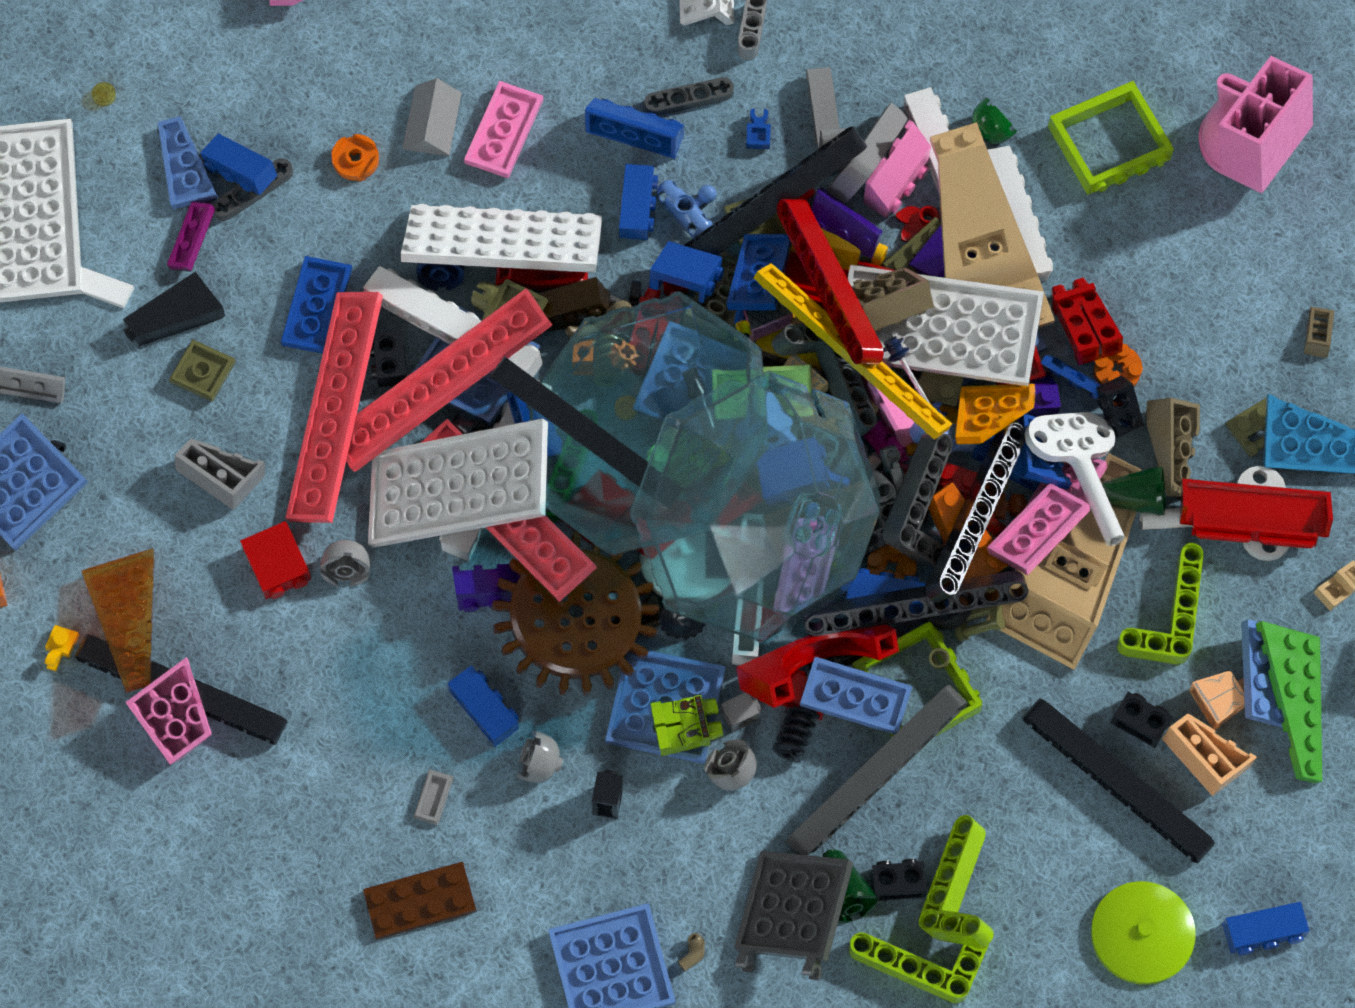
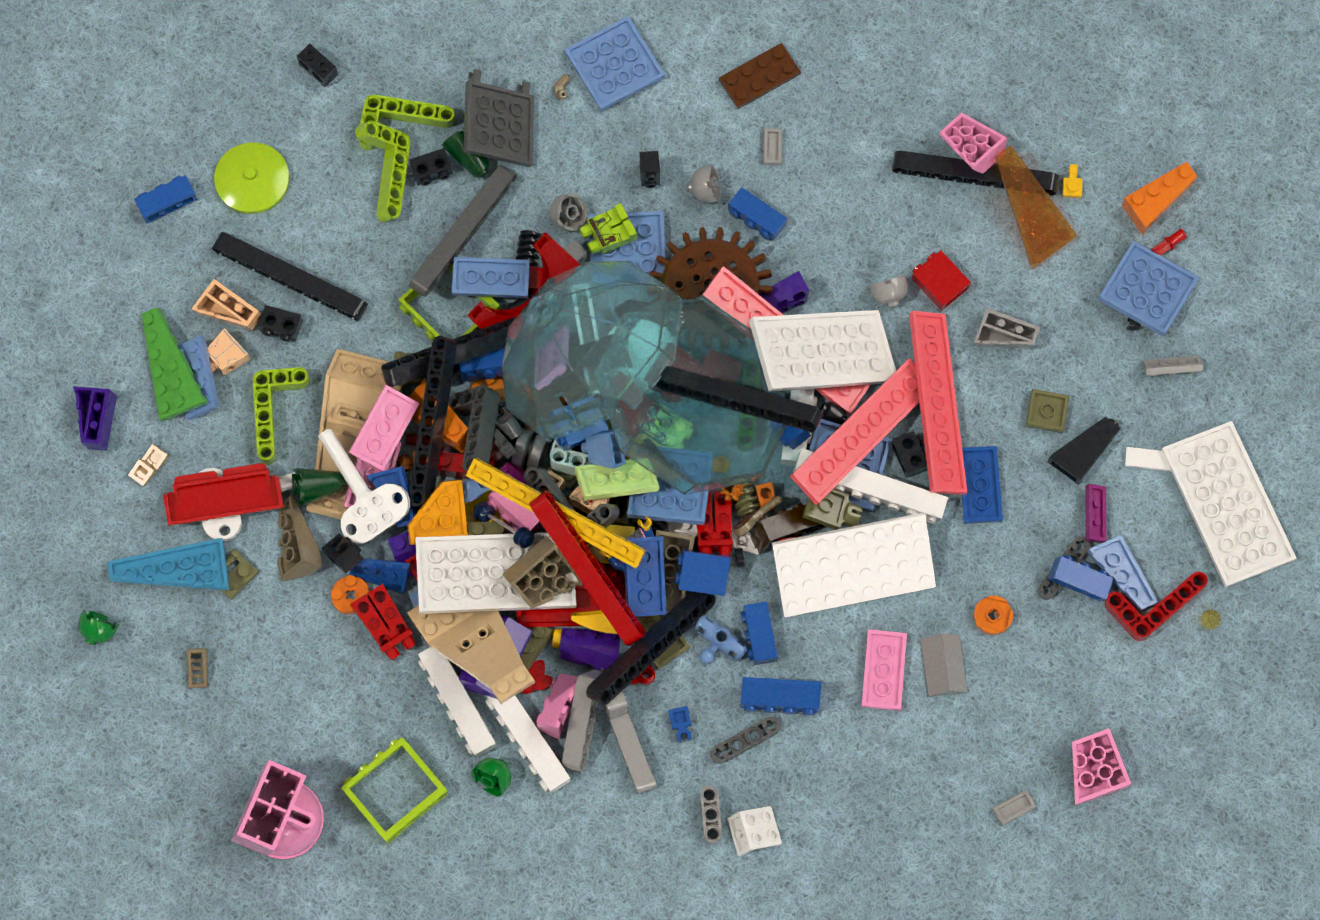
camera: 165 degrees right, 5 degrees up
(155, 106) = (1159, 610): none -> red beam
(945, 656) = (439, 319): olive hinge -> none

